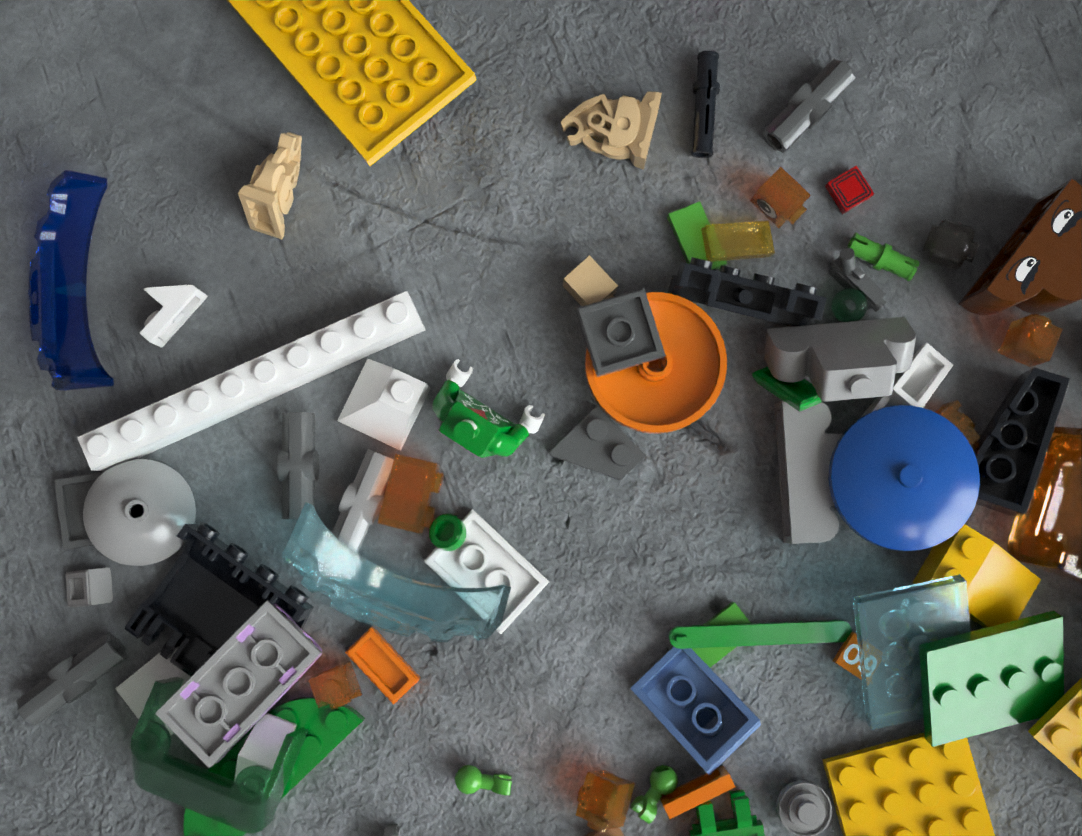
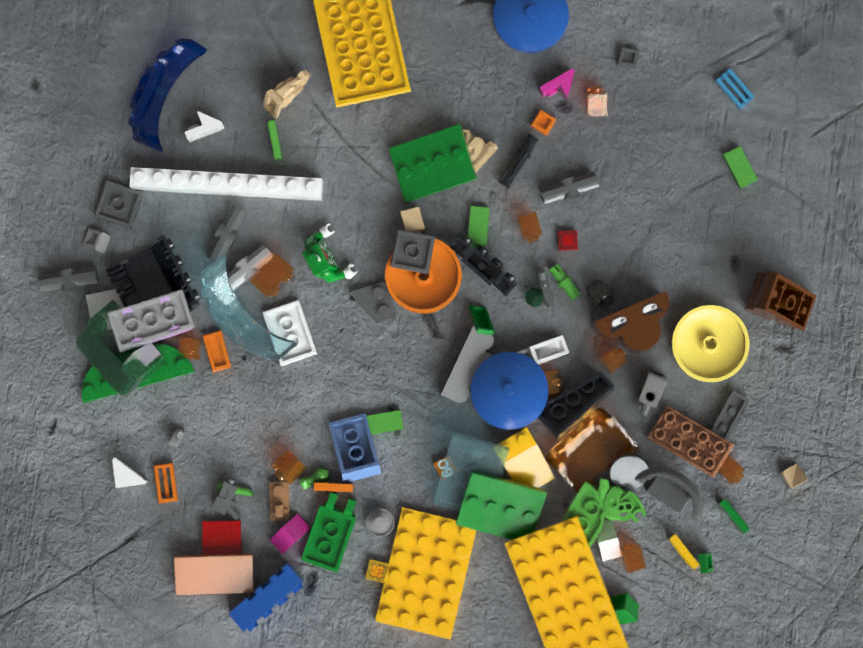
camera: 30 degrees right, 0 degrees up
(146, 539) = (127, 224): light grey dish -> none
(298, 272) = (275, 140): none -> bright green tile
(384, 403) = (282, 226): white slope -> none
(447, 532) = (280, 304): green tile -> none
(470, 780) = (230, 426): bright green arm -> none
(574, 175) = (433, 163): none -> green plate
(709, 27) = (543, 122): none -> orange tile
(738, 241) = (497, 237): clear yellow tile -> none
(759, 634) = (403, 430): green piece -> none
(842, 357) = (514, 319): light grey brick -> none

